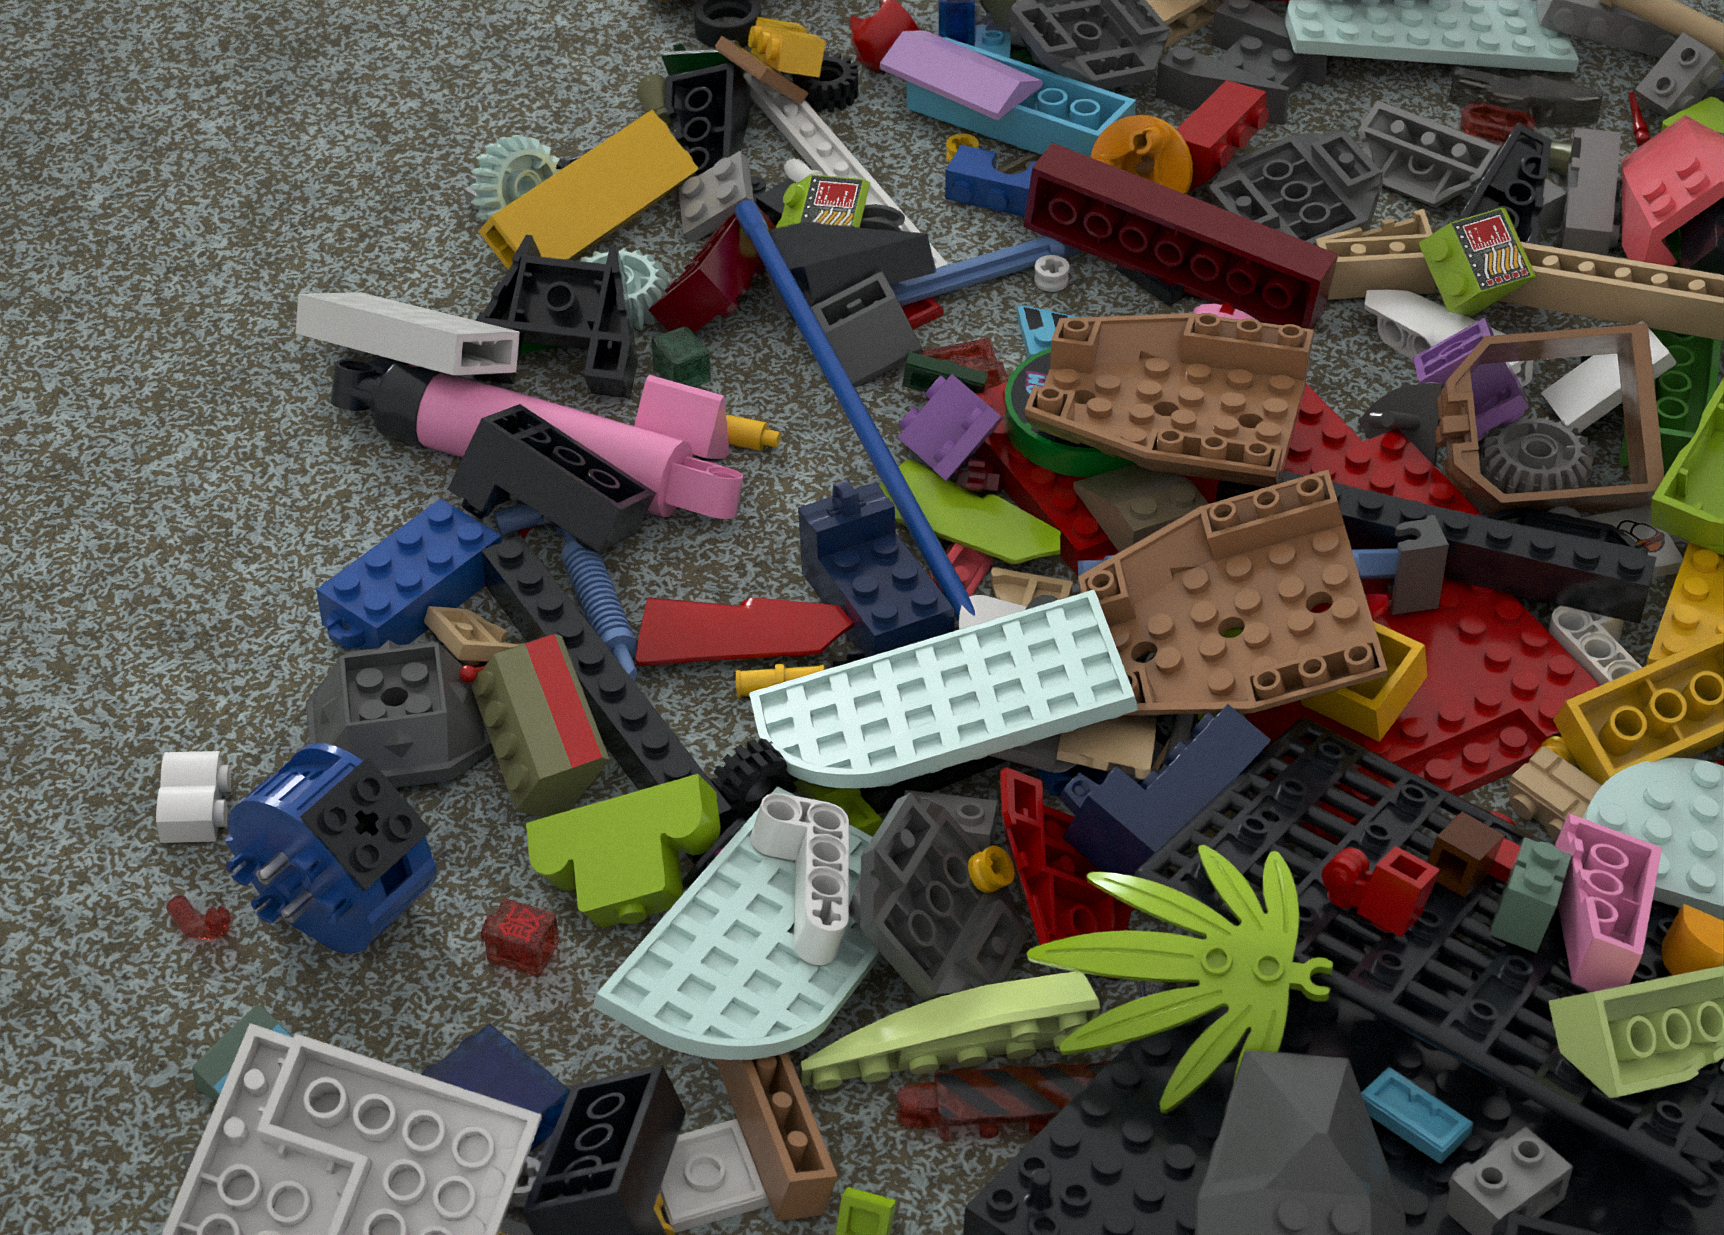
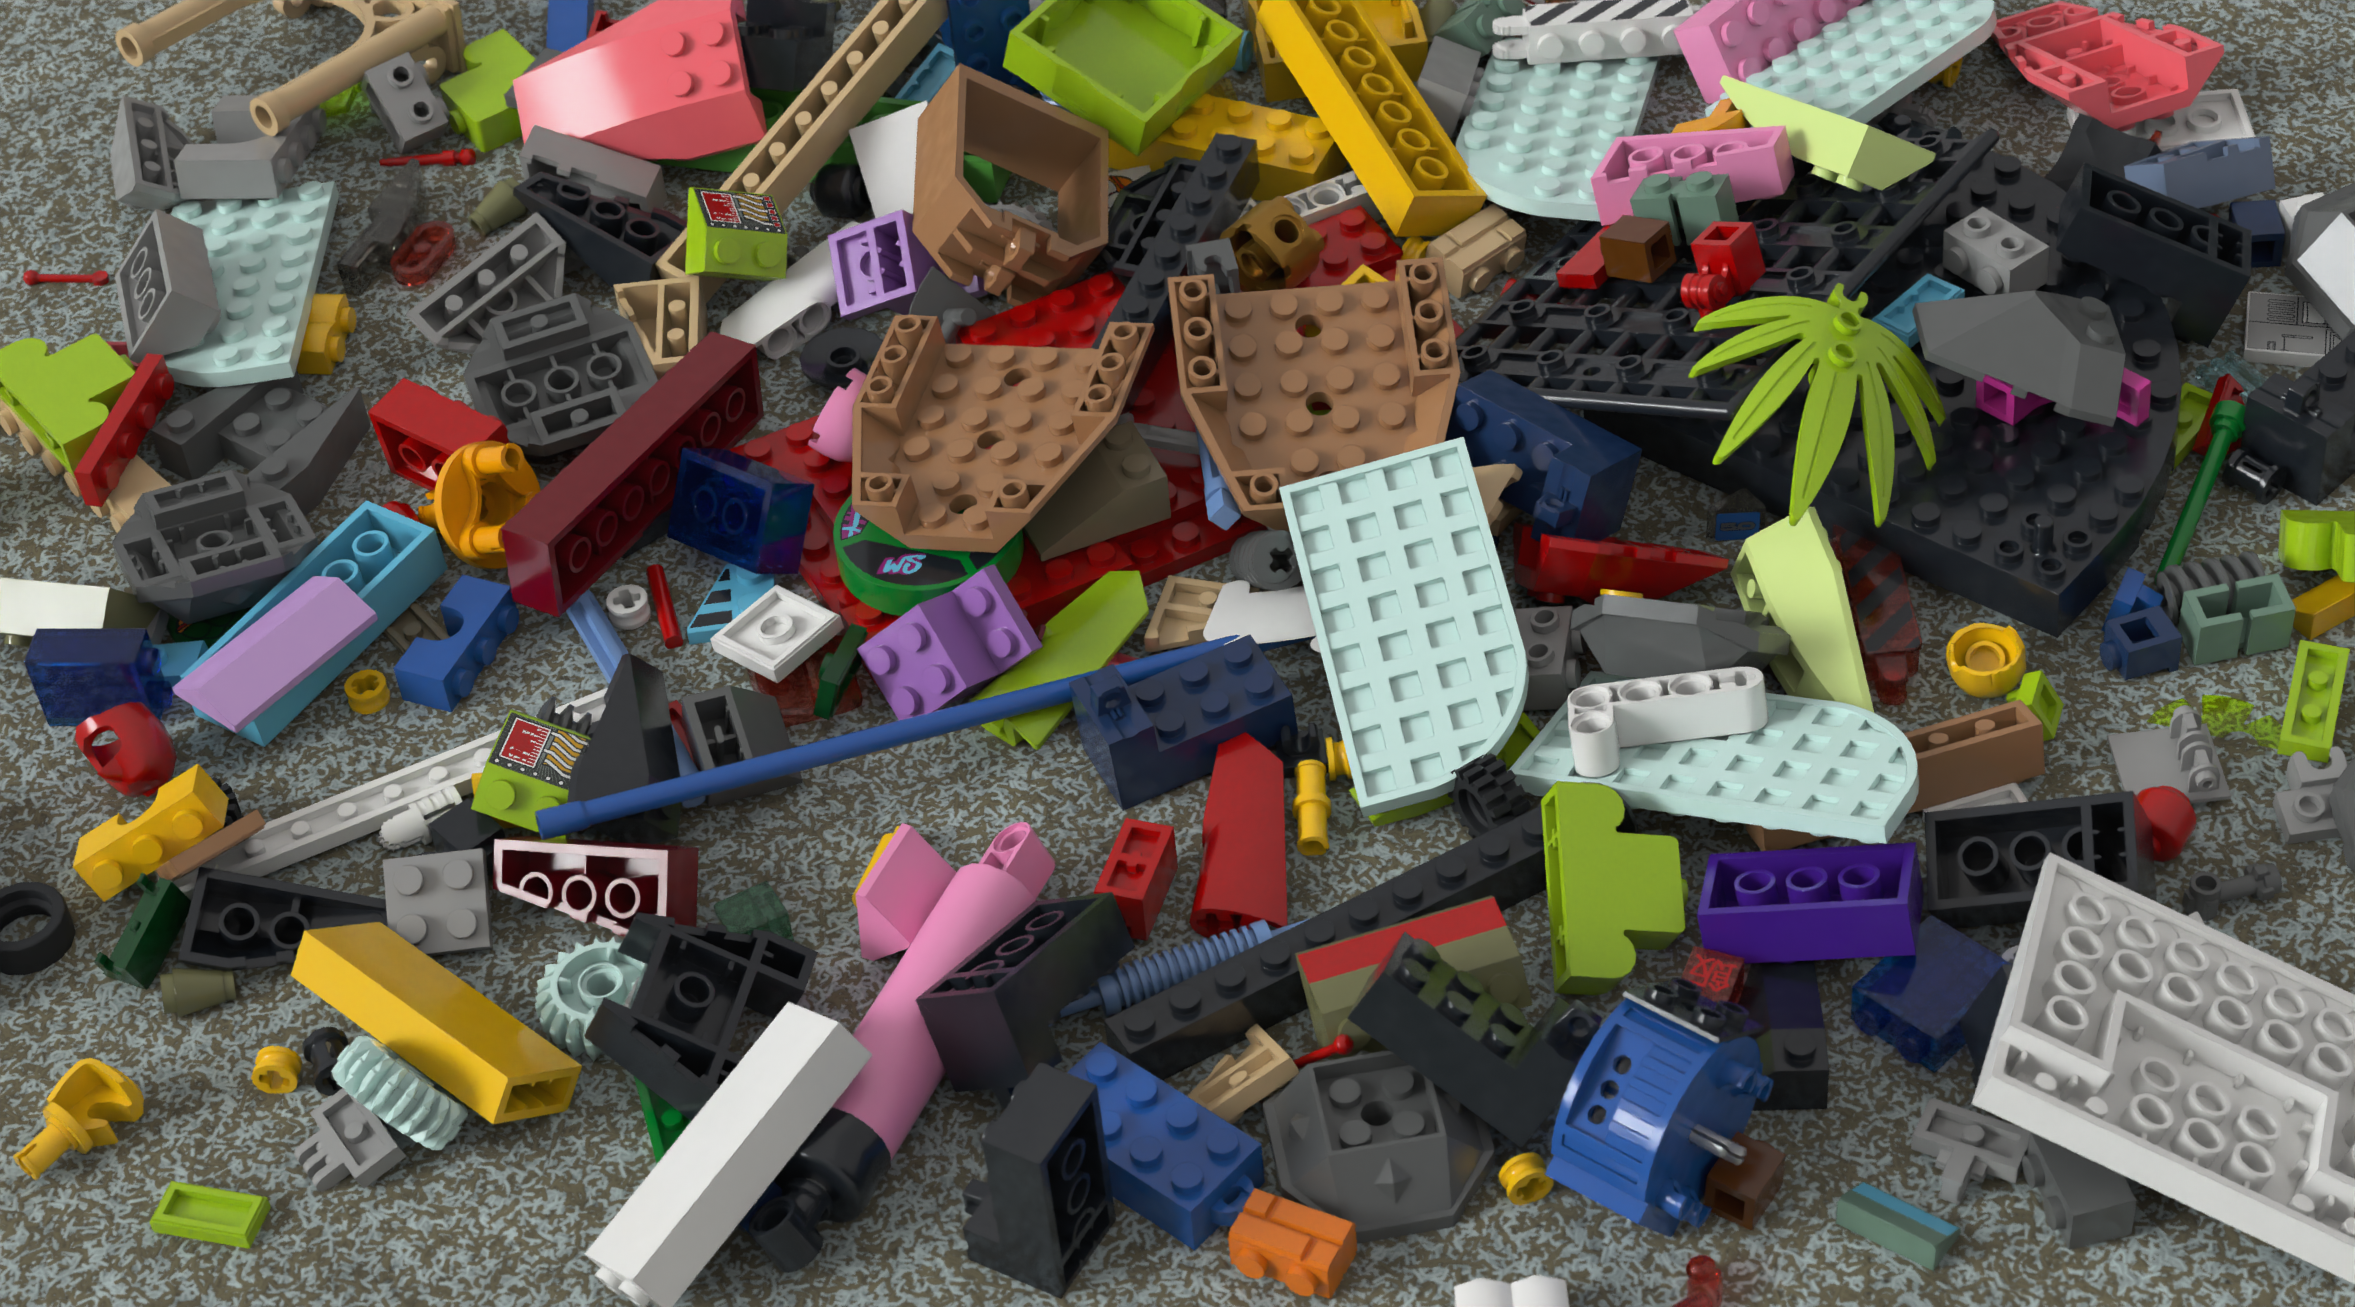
camera: 85 degrees left, 0 degrees up
(296, 666) = (1292, 1244): none -> orange brick
(302, 950) = (1747, 1189): none -> reddish brown brick
(332, 485) = (1045, 1185): none -> black hinge
(444, 723) = (1470, 1040): none -> black hinge
(455, 136) = (210, 1214): none -> lime tile
(470, 992) = (1793, 1035): none -> black wedge
(541, 61) = (80, 1114): none -> yellow piece
(560, 1027) = (1813, 903): none -> dark purple brick
(573, 142) = (276, 1070): none -> yellow bush
(688, 560) = (1140, 873): none -> red hinge
(928, 1175) = (1986, 659): none -> yellow hair
(996, 344) = (777, 633): none -> white tile
(1058, 295) = (664, 606): none -> red piece
(1137, 289) = (740, 510): none -> clear blue brick
(1367, 369) = (836, 352): none -> black dish
(1383, 79) = (326, 334): none -> yellow brick
(1481, 603) = (1273, 246): none -> pearl gold brick

